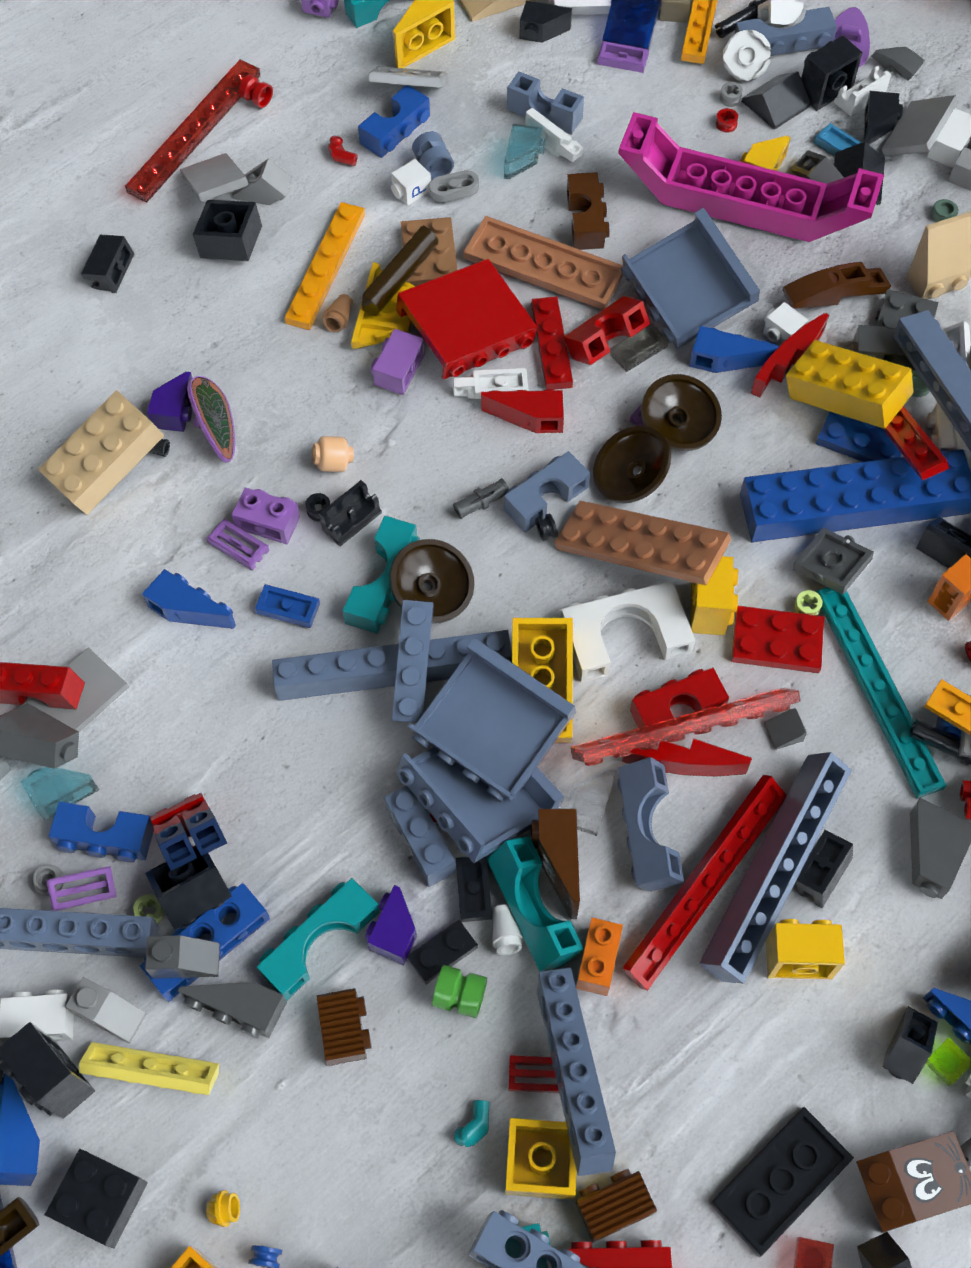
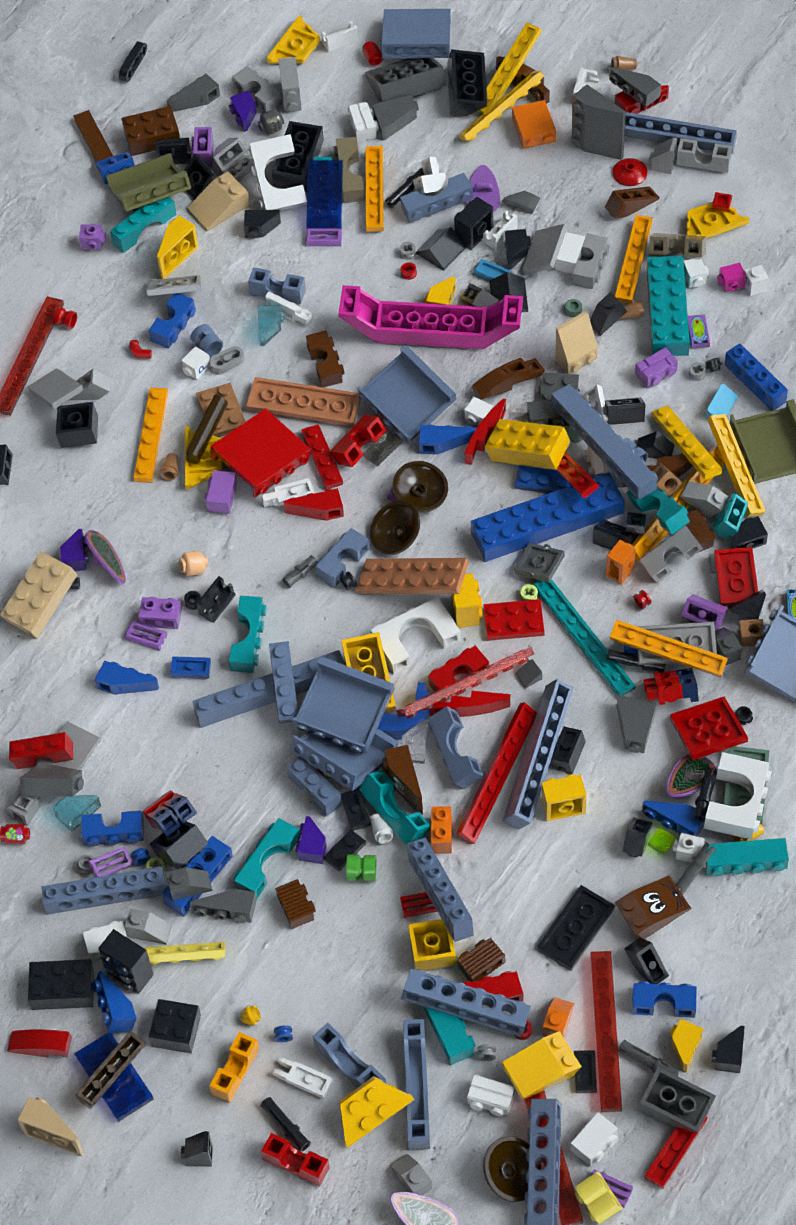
camera: 10 degrees left, 5 degrees down
(129, 888) = (140, 856): none -> blue bush
(440, 567) = (285, 621): dark brown dish -> none
(476, 1128) = (389, 940): teal arm -> none
(567, 772) = (398, 726): none -> blue arch
(746, 55) = (412, 220): white tile -> none

